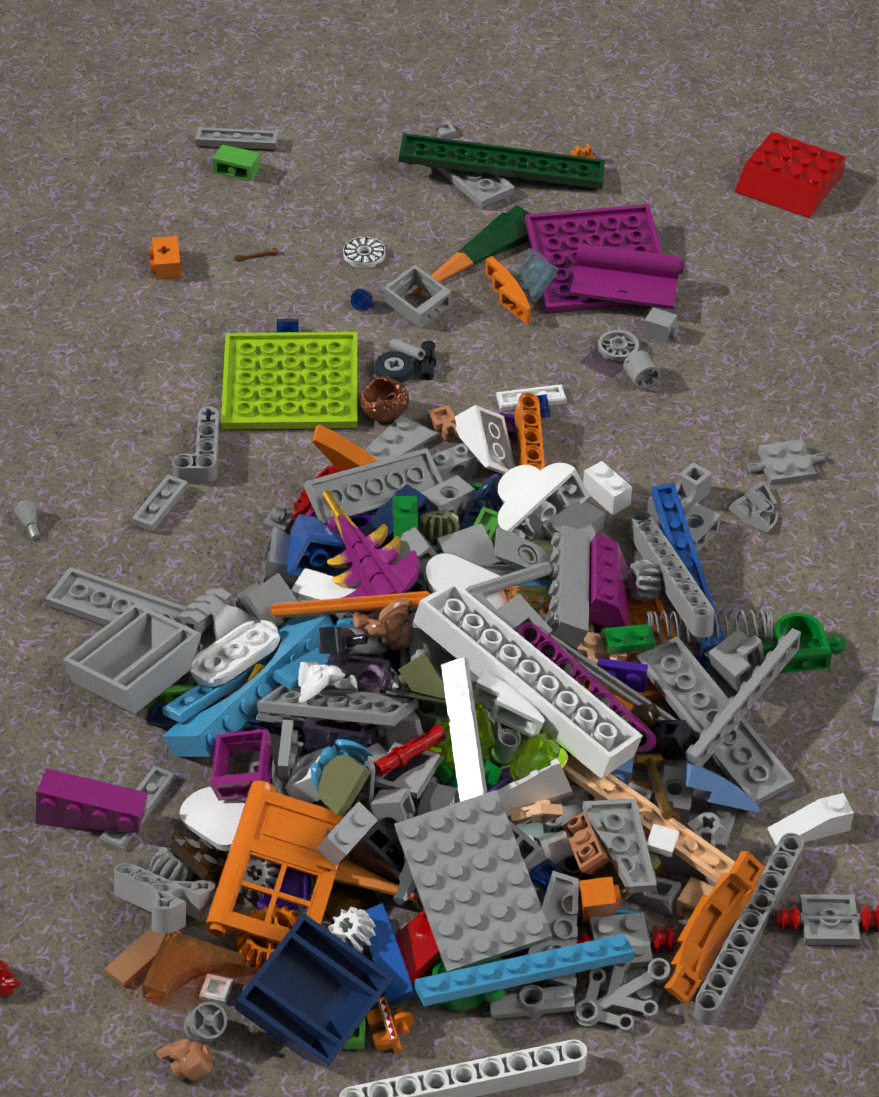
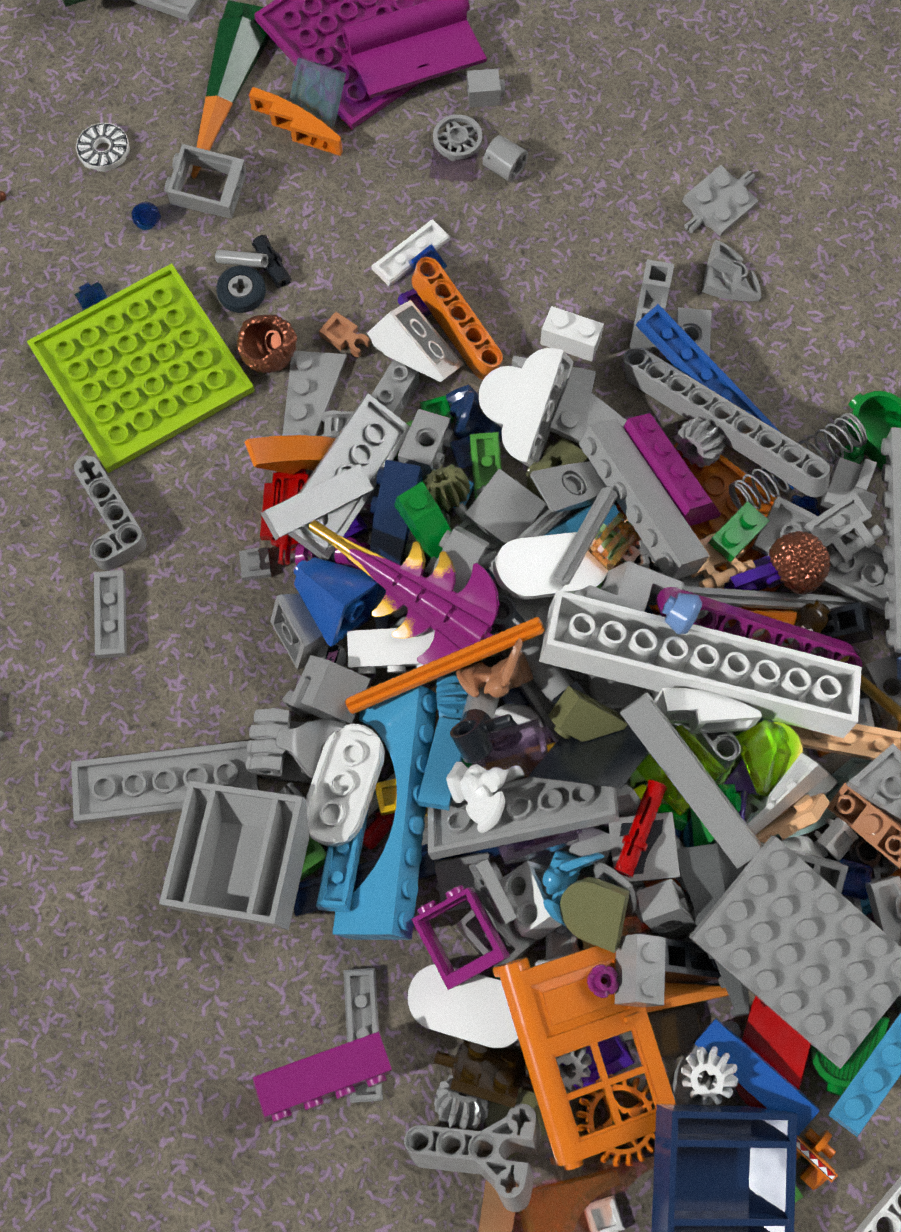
camera: 30 degrees left, 25 degrees up
(317, 833) = (595, 984): none -> magenta plate
(341, 483) = (317, 501): none -> tile
(530, 630) = (682, 612): none -> medium blue cone
(656, 671) = (800, 561): none -> copper hair
(706, 666) = (839, 521): none -> light grey plate

